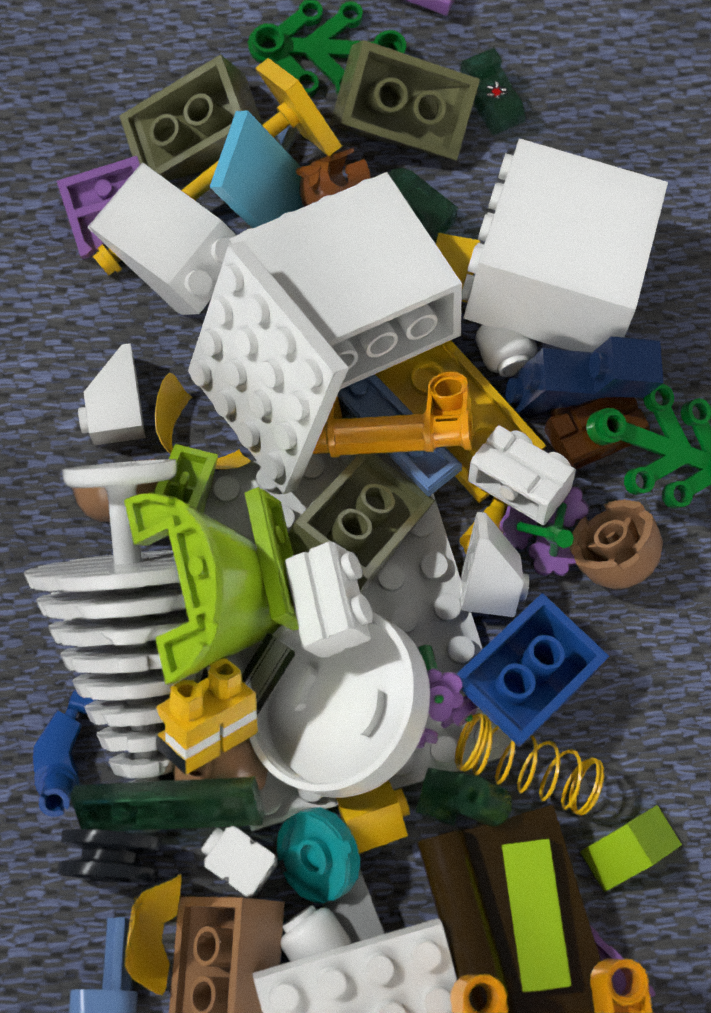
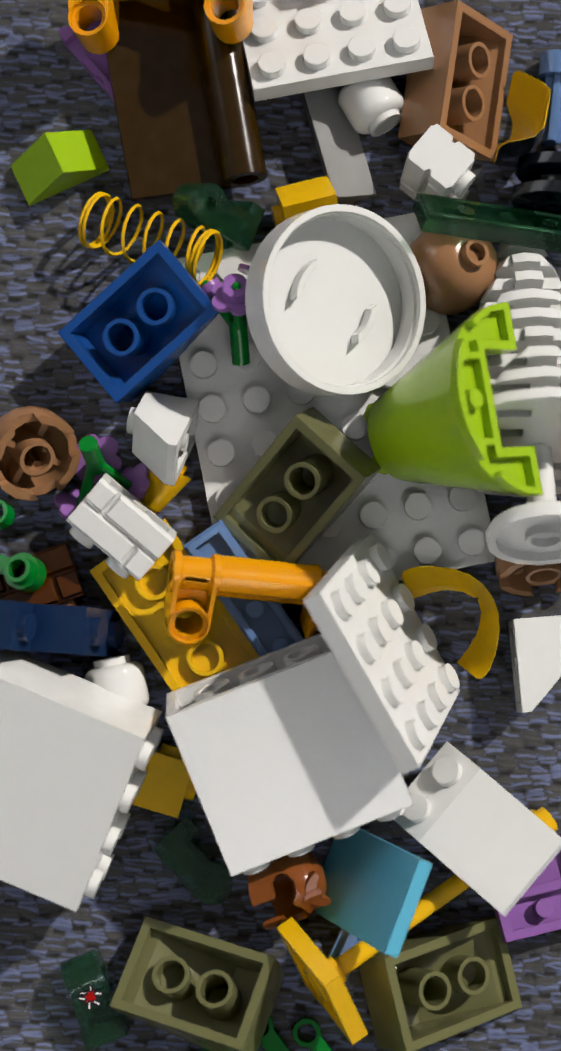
camera: 170 degrees left, 10 degrees up
(192, 476) = (466, 554): lime slope -> none
(206, 717) = (457, 292): yellow hips -> none
(267, 668) = (408, 336): sticker -> none
(272, 549) = (387, 440): lime tile -> none
(318, 855) = (362, 174): teal tile -> none
(328, 599) = (338, 386): white brick -> none
(536, 915) = (162, 98): lime tile -> none

